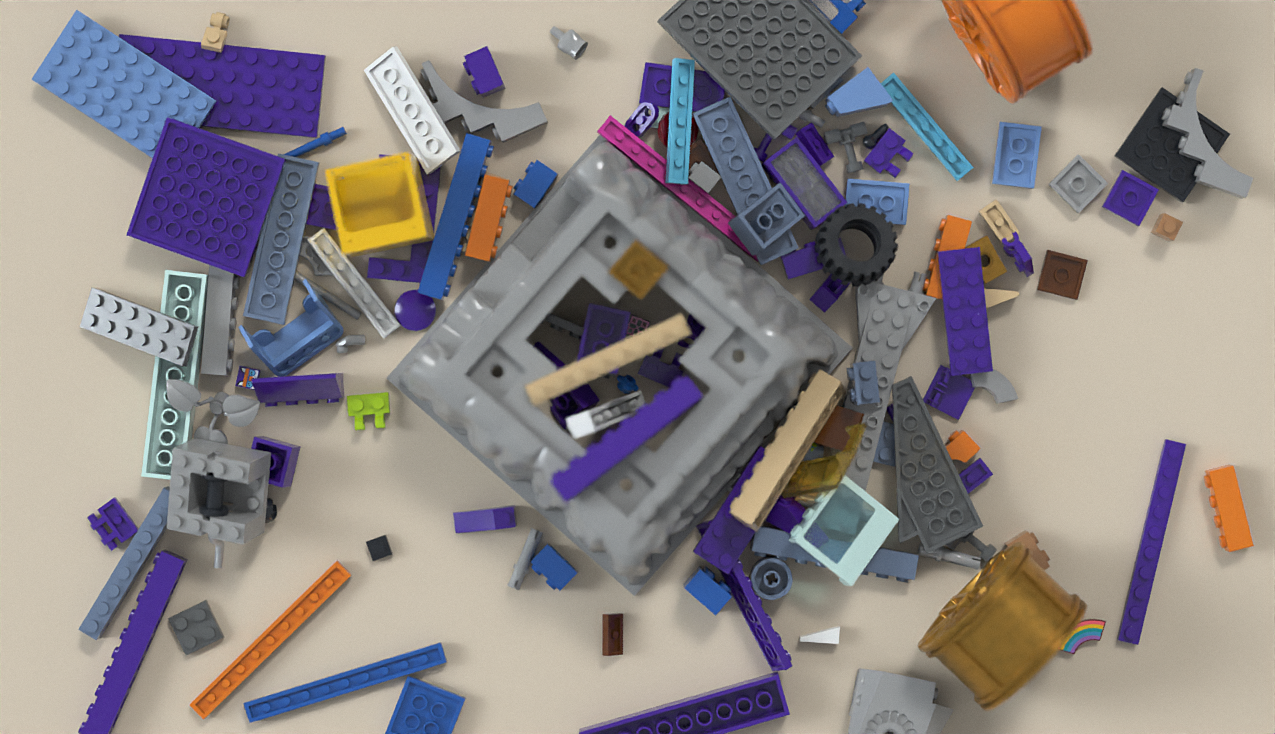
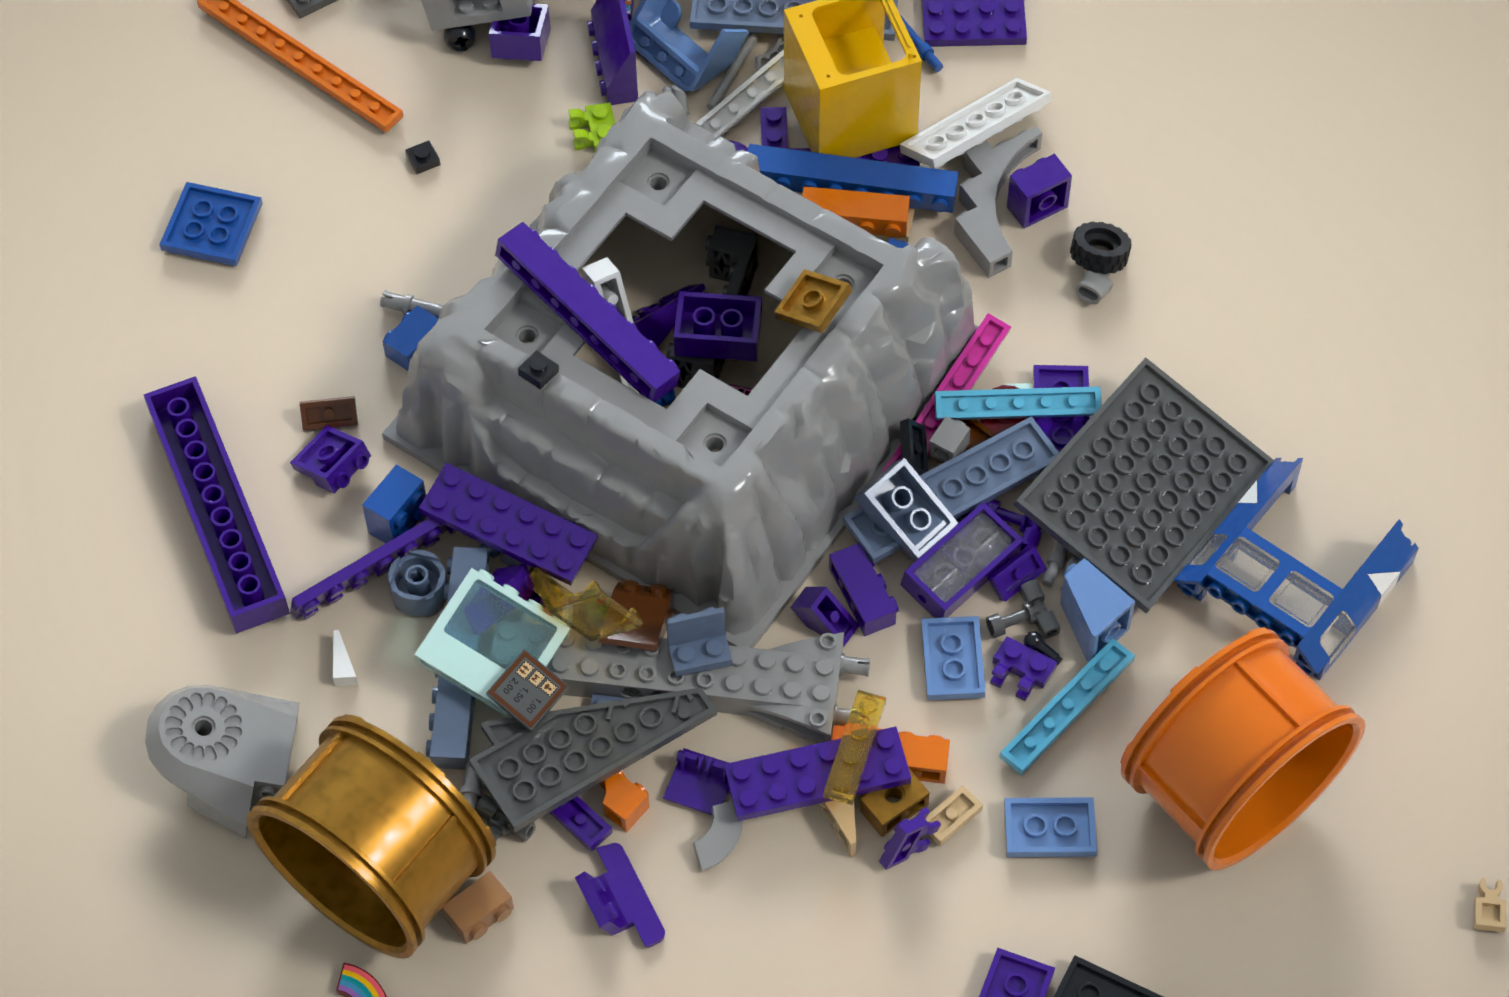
camera: 85 degrees right, 30 degrees down
(345, 682) = (251, 140): blue plate -> none
(485, 519) = (468, 258): dark purple slope -> none
(551, 44) = (1100, 260): none -> black tyre
(607, 359) = (691, 287): tan plate -> none
(642, 118) = (1012, 369): dark purple plate -> none
(654, 634) = (332, 459): none -> dark purple plate
(672, 480) = (538, 369): none -> black plate
(711, 204) = (914, 445): none -> black plate
(787, 450) = (593, 548): tan brick -> none
(874, 227) = (908, 589): black tyre -> none
(886, 508) = (527, 690): none -> tile
(955, 283) = (854, 747): none -> clear yellow plate
(1030, 458) = (619, 897): none -> dark purple plate
(1062, 274) = (889, 911): reddish brown tile -> none
(1078, 183) = (1024, 913): light grey plate -> none

